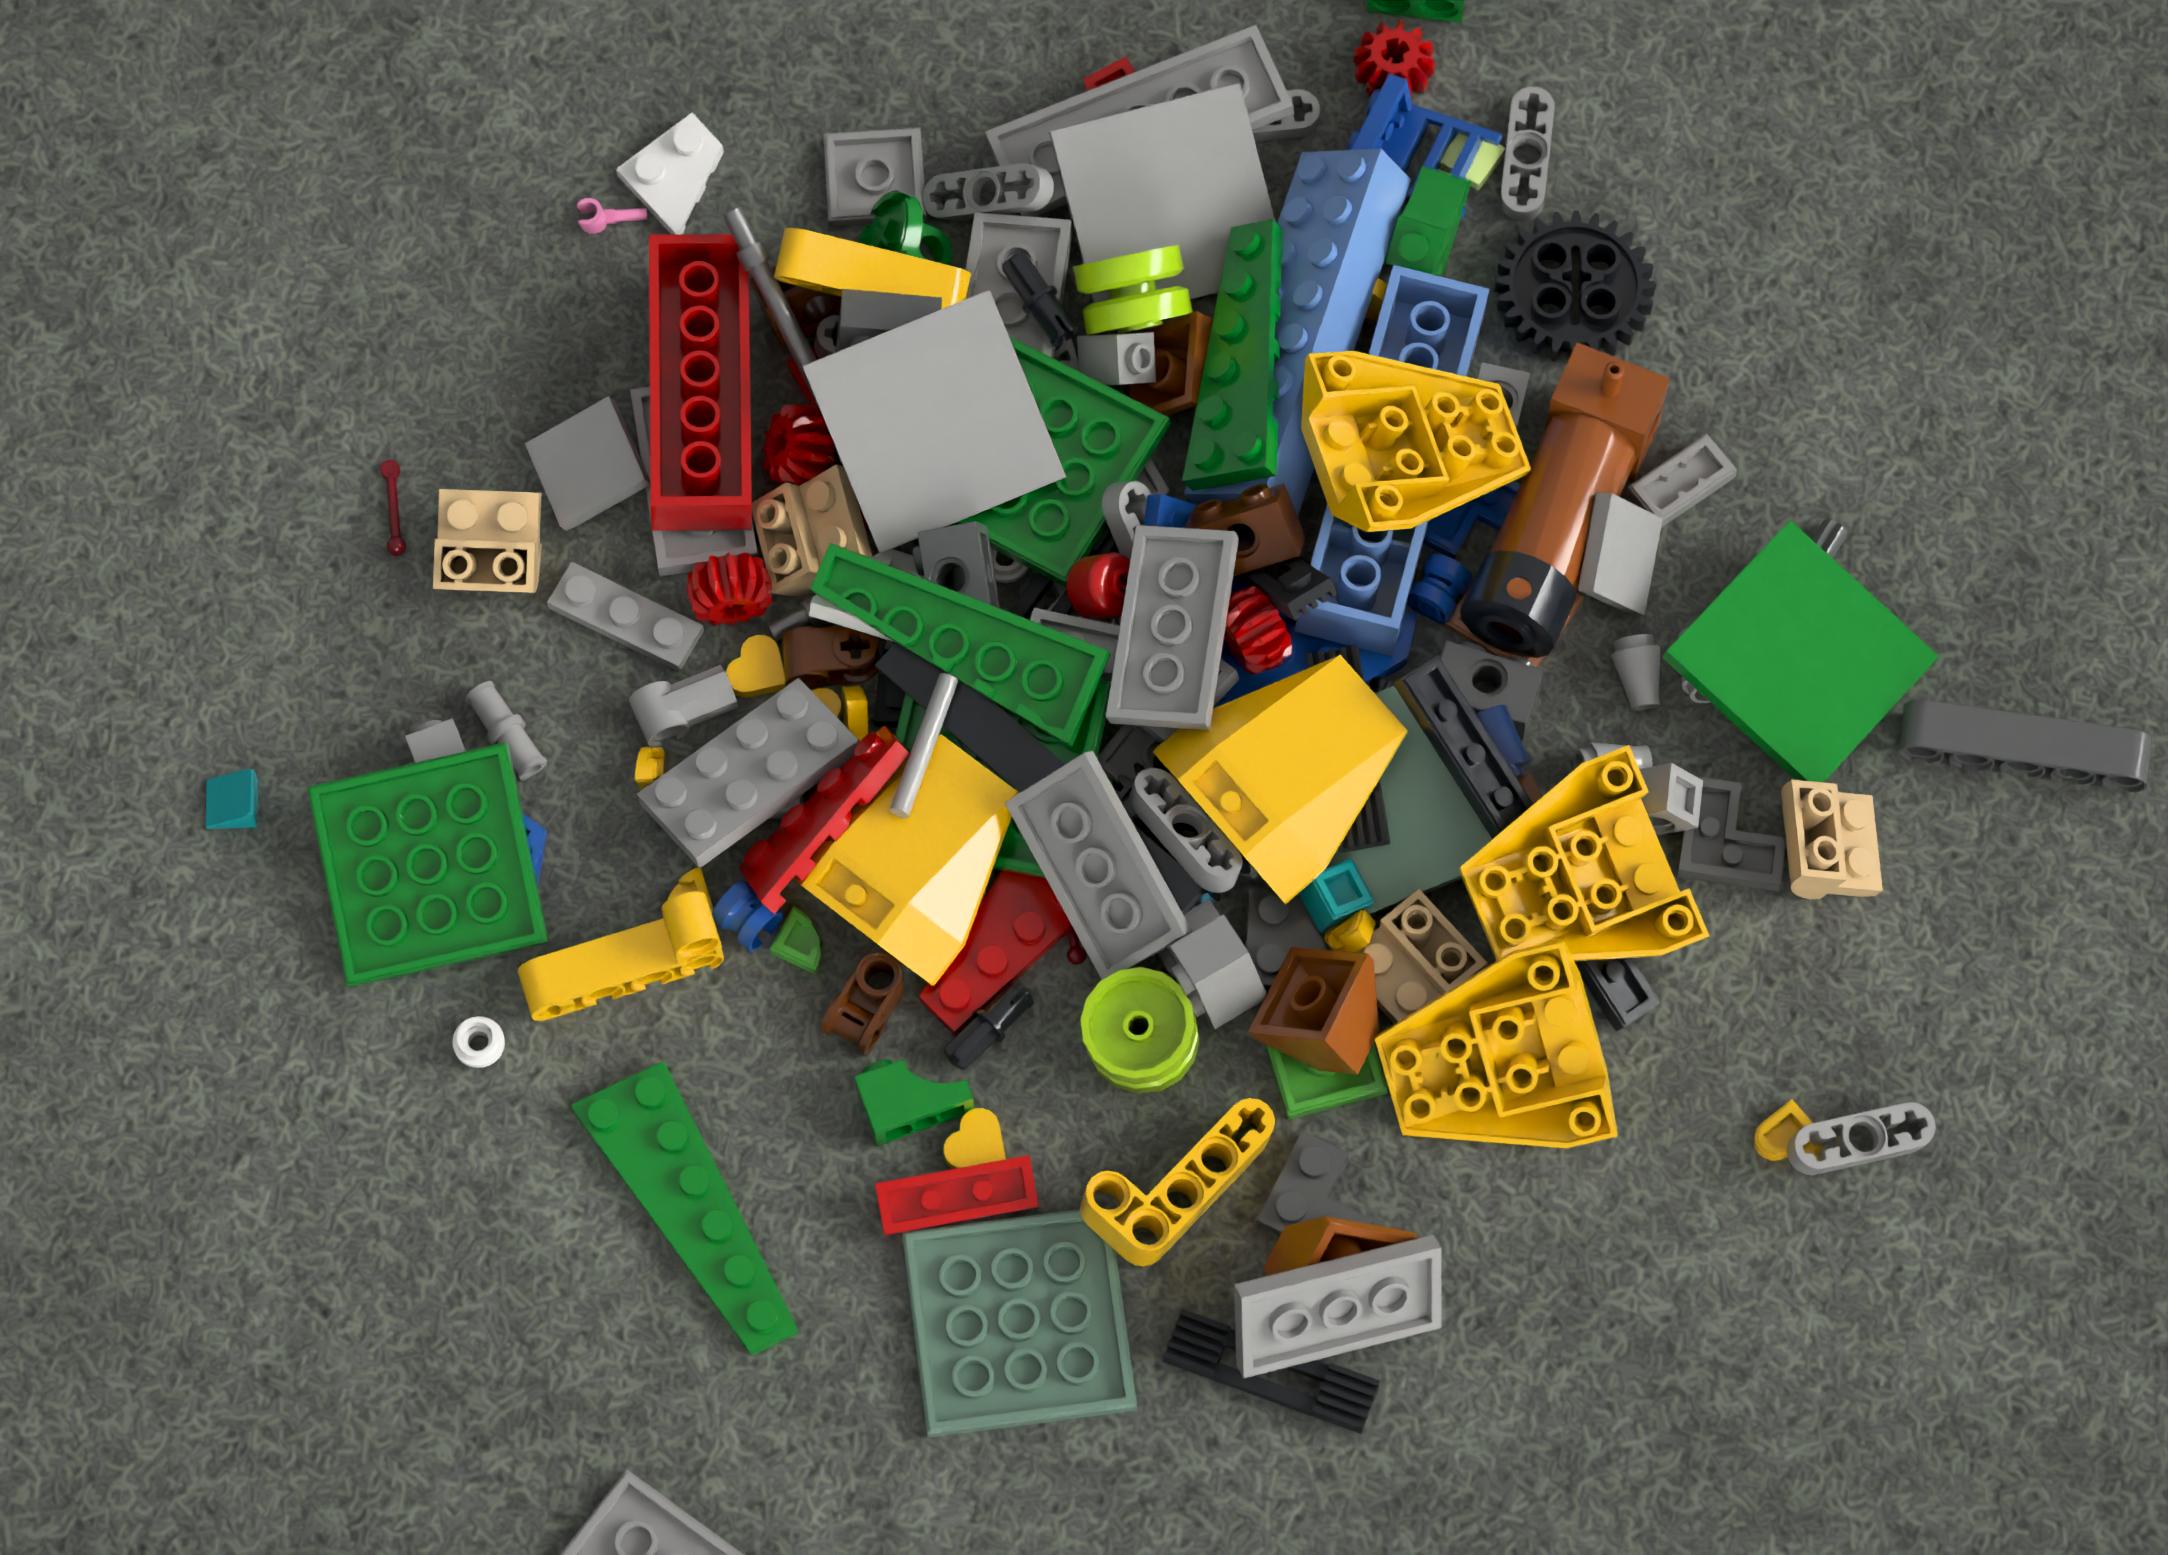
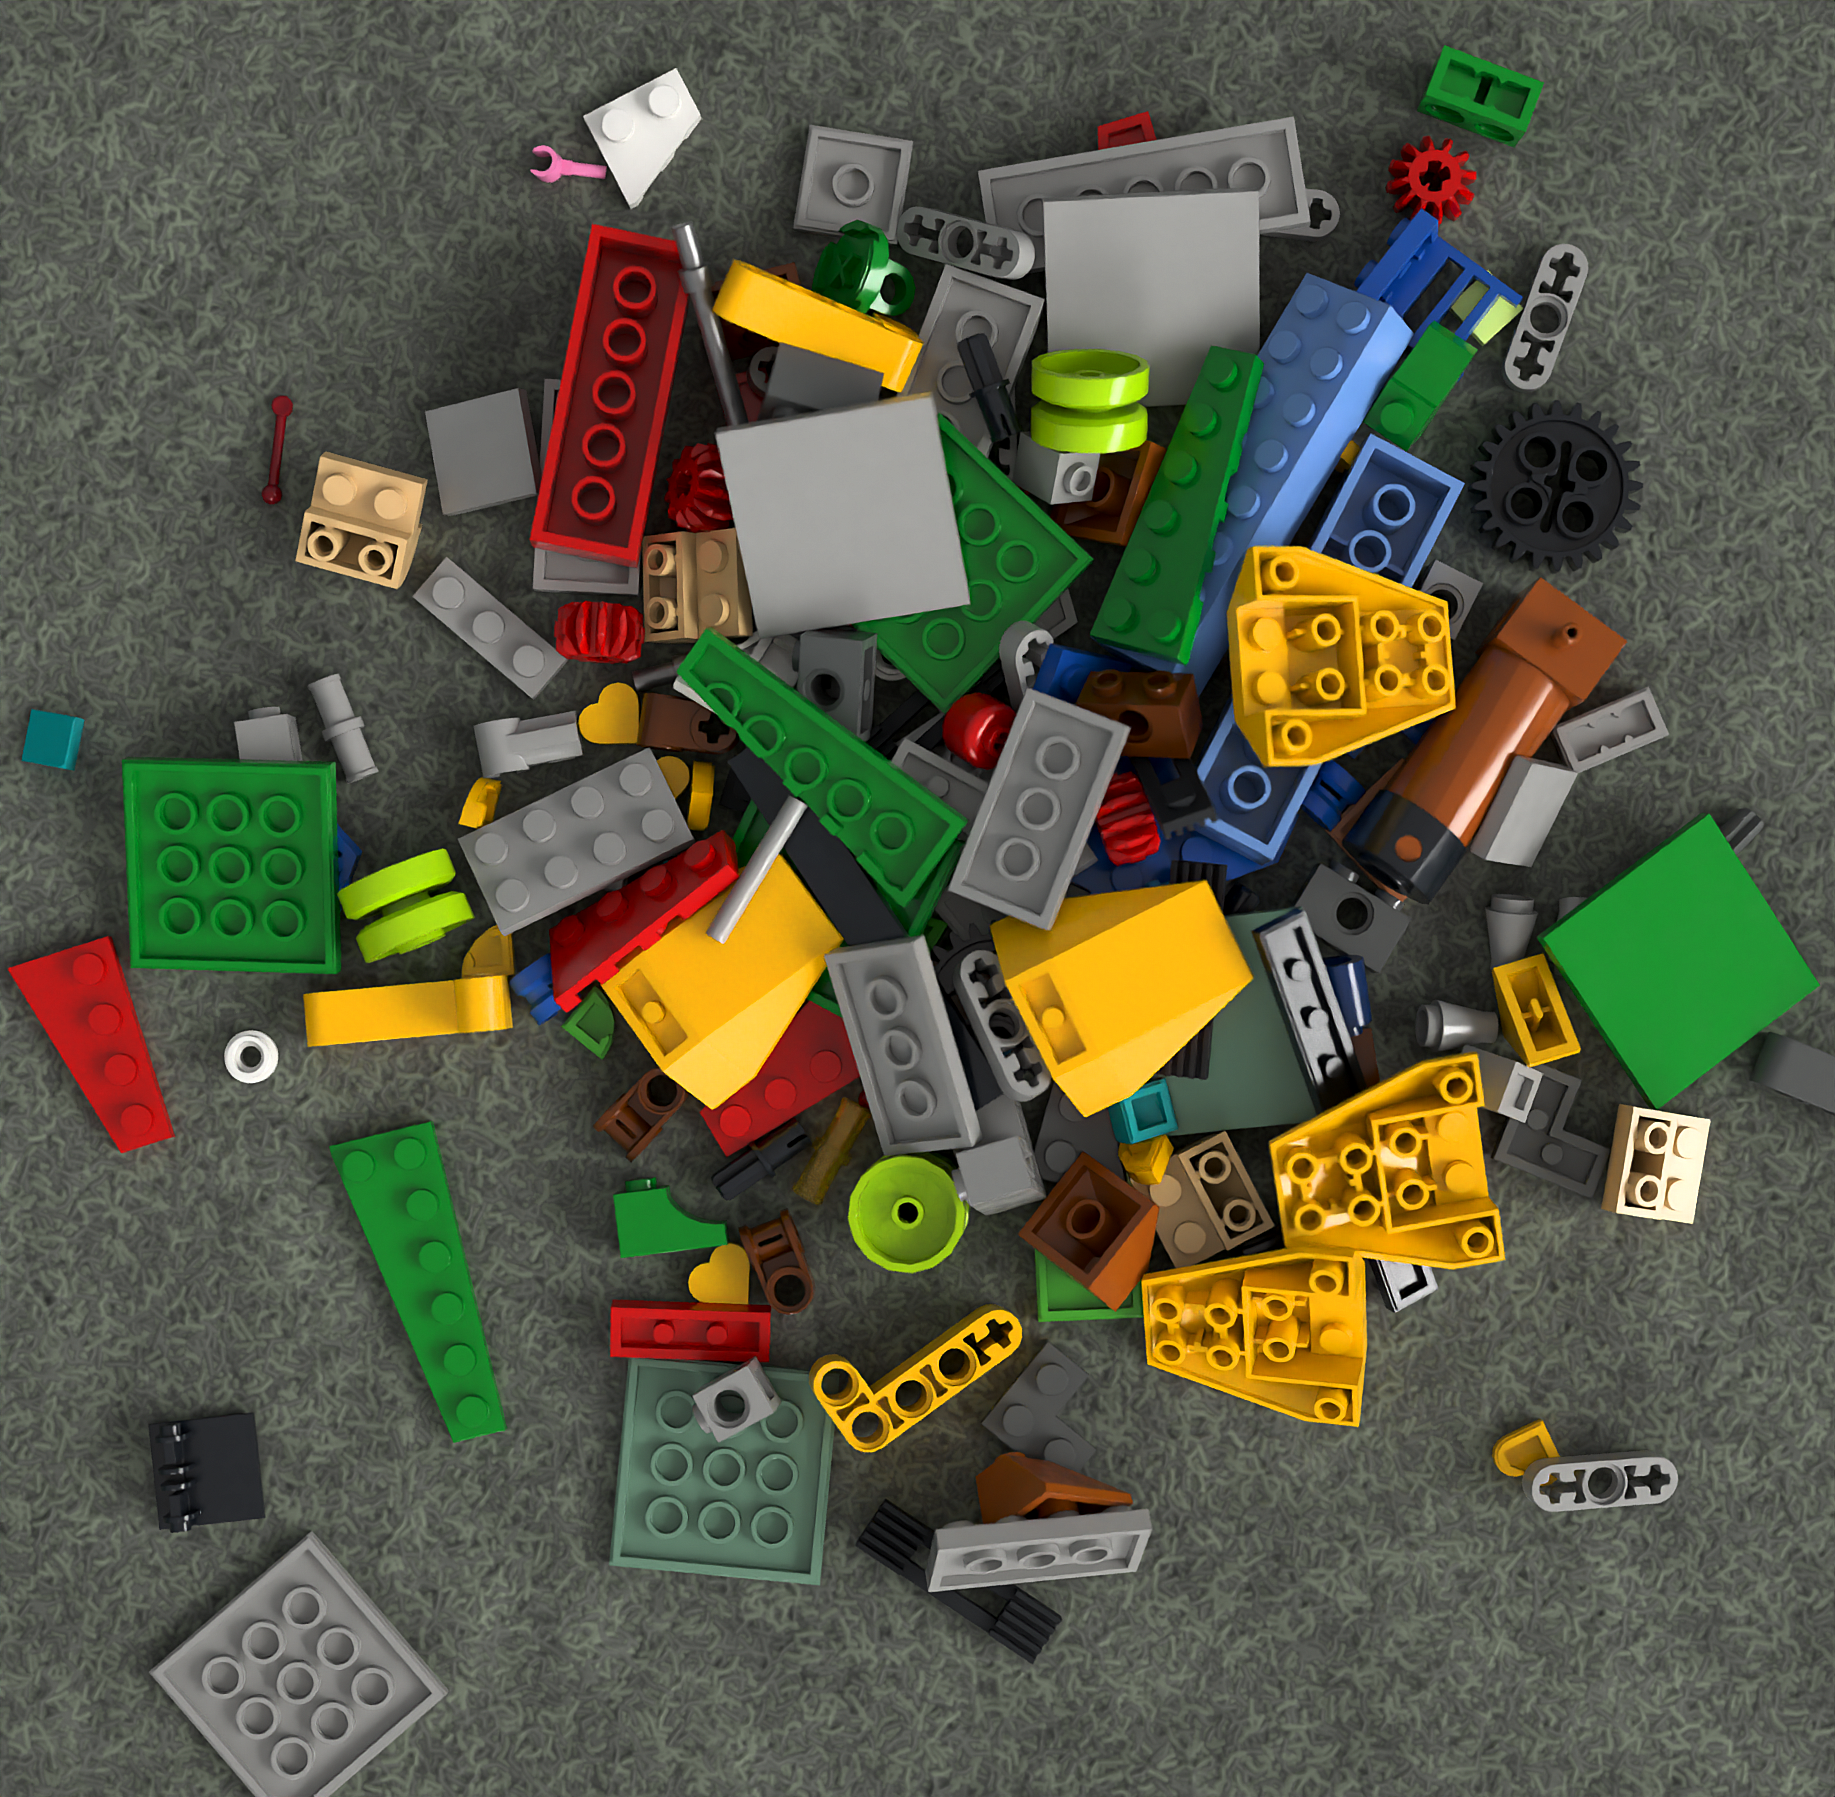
camera: 15 degrees right, 20 degrees up
(323, 1050) = (96, 1030): none -> red wing
(512, 1434) = (206, 1471): none -> black hinge
(600, 859) = (404, 900): none -> lime wheel
(1019, 1215) = (754, 1387): none -> light grey brick
(1025, 1107) = (778, 1259): none -> reddish brown piece
(1053, 1003) = (831, 1151): none -> clear yellow pin
(1676, 726) = (1533, 1011): none -> yellow slope

